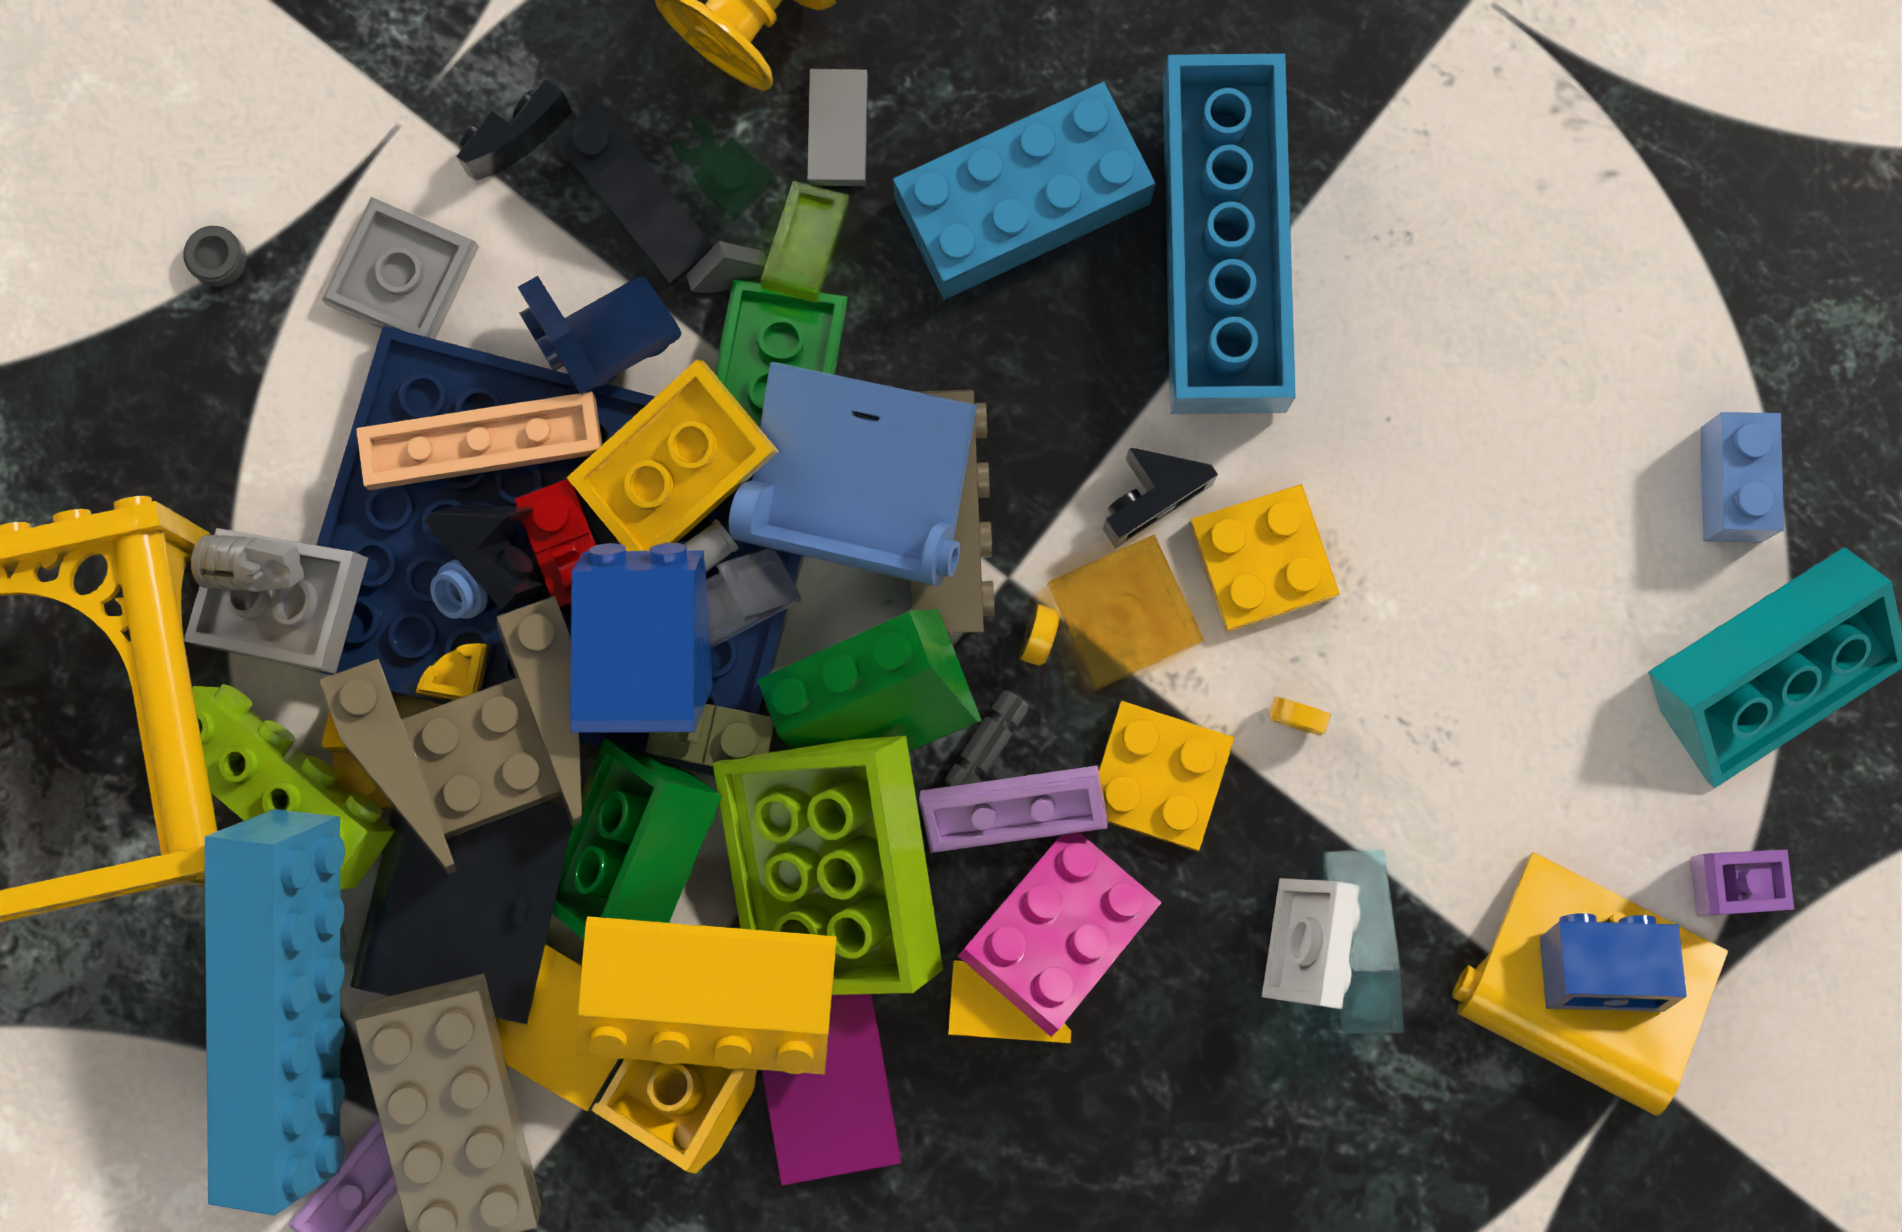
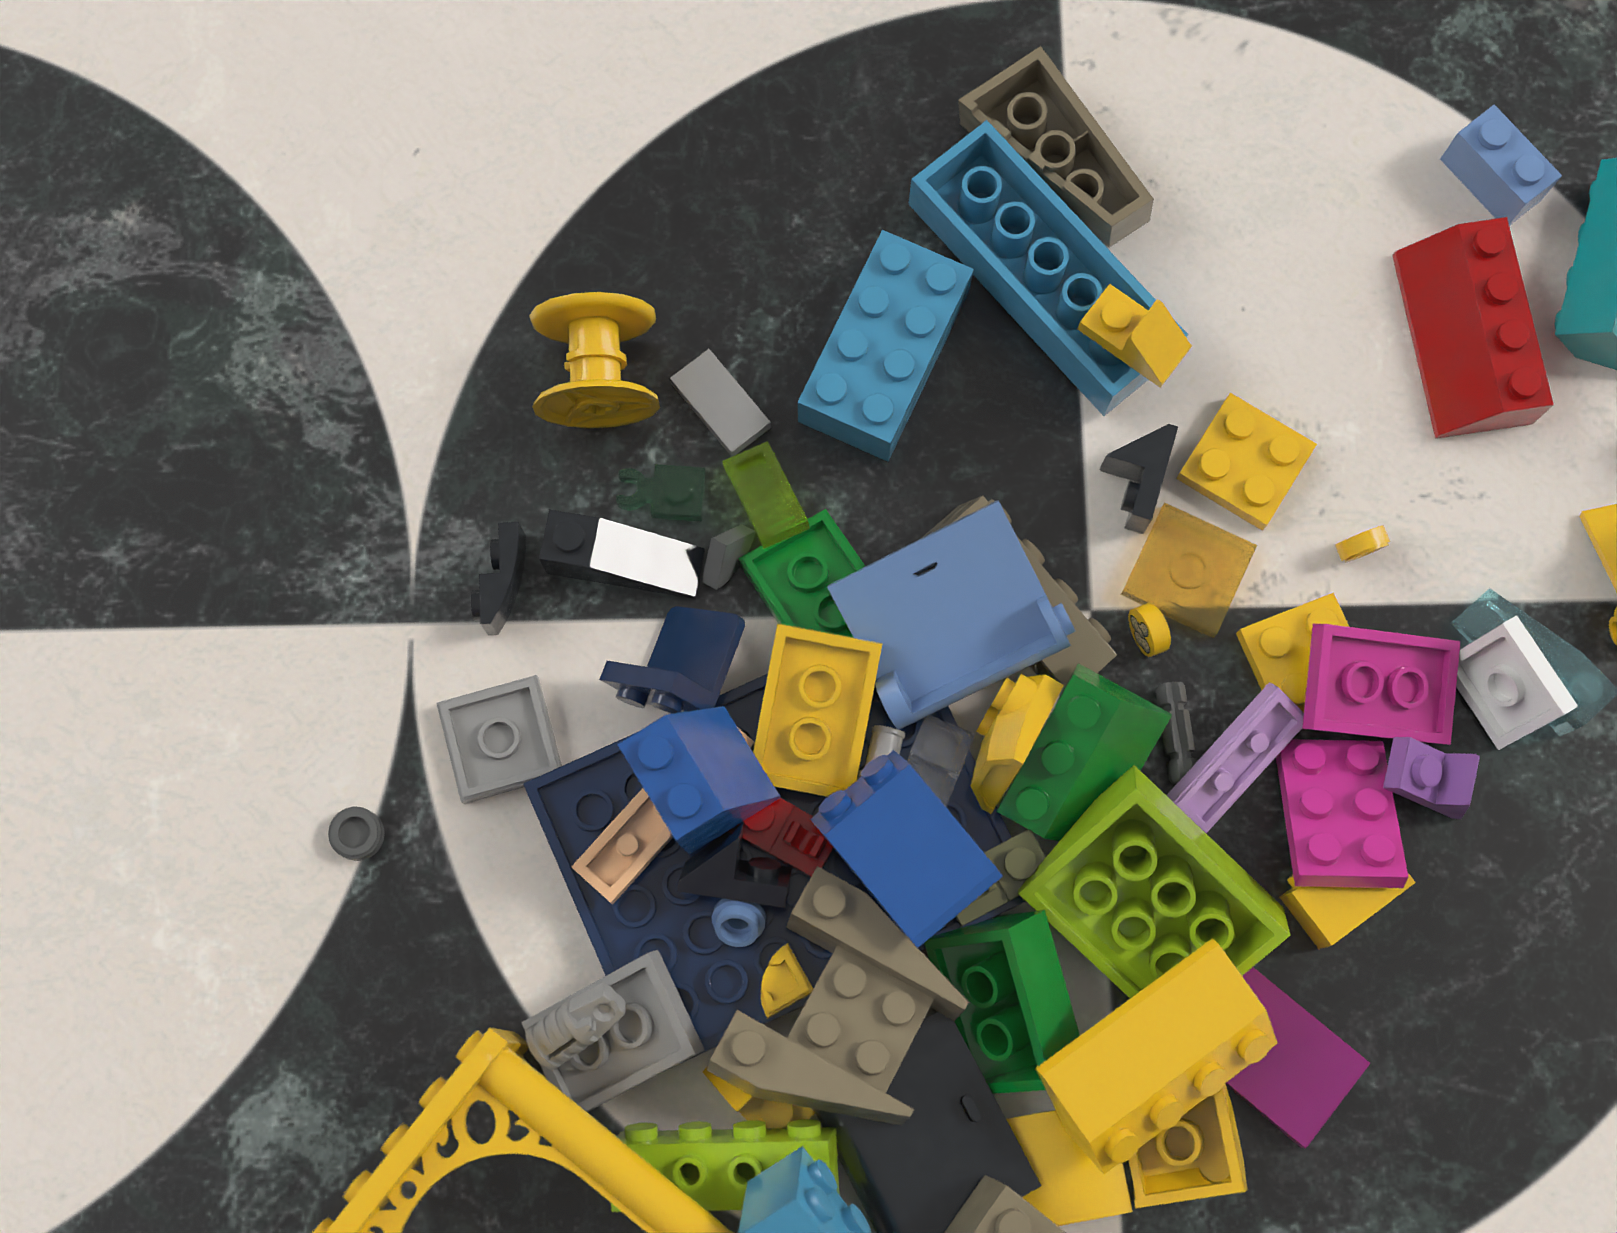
camera: 40 degrees left, 5 degrees down
(512, 432) = (698, 774): none -> blue slope
(828, 617) = (1009, 734): none -> yellow slope
(1169, 965) = (1431, 777): none -> medium lavender slope
(1197, 850) = (1381, 684): none -> dark pink plate
(1243, 358) = (1137, 336): none -> yellow slope
(1338, 124) = (1062, 144): none -> dark tan wedge
(1577, 605) = (1472, 329): none -> red slope

